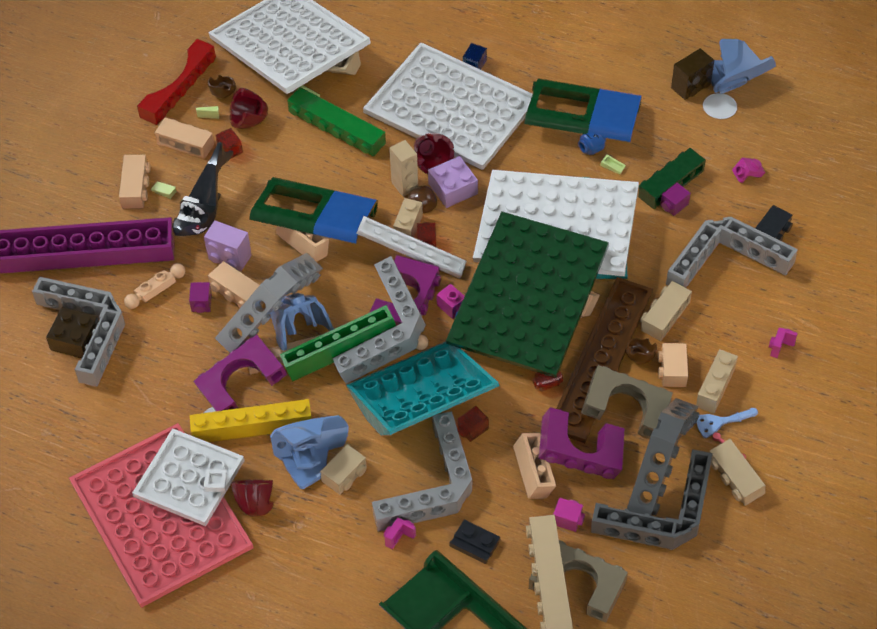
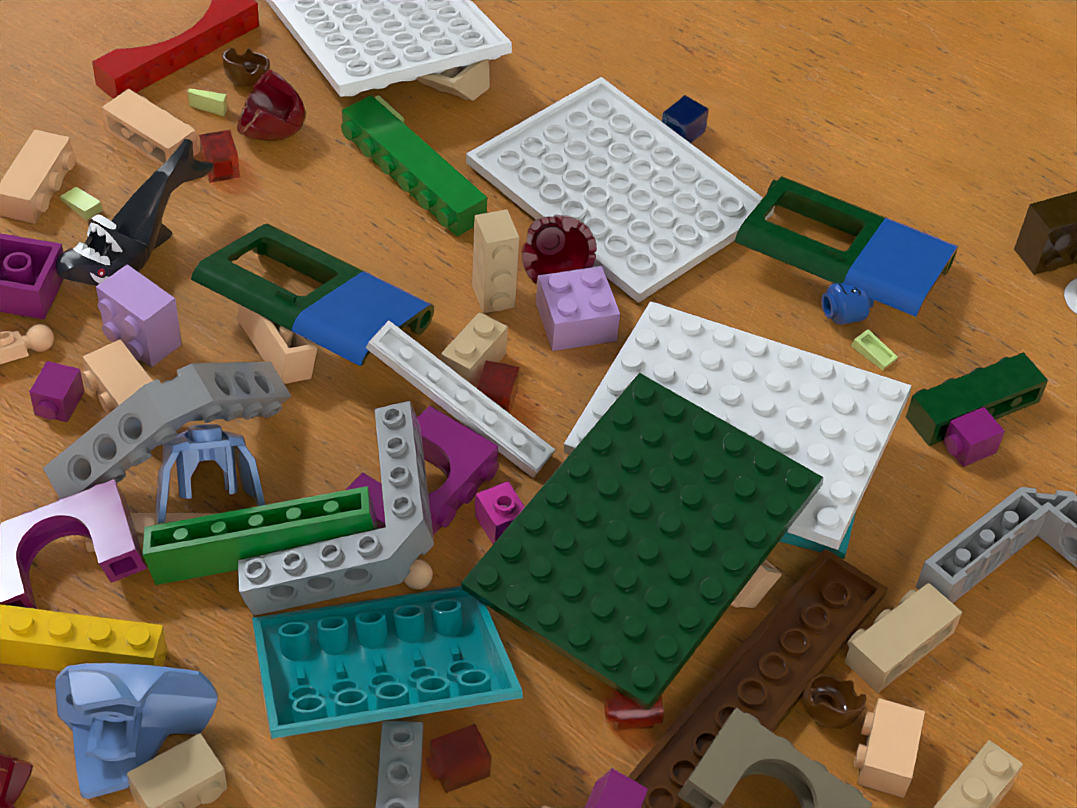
camera: 10 degrees right, 5 degrees down
(426, 196) = (521, 323): reddish brown hair -> none

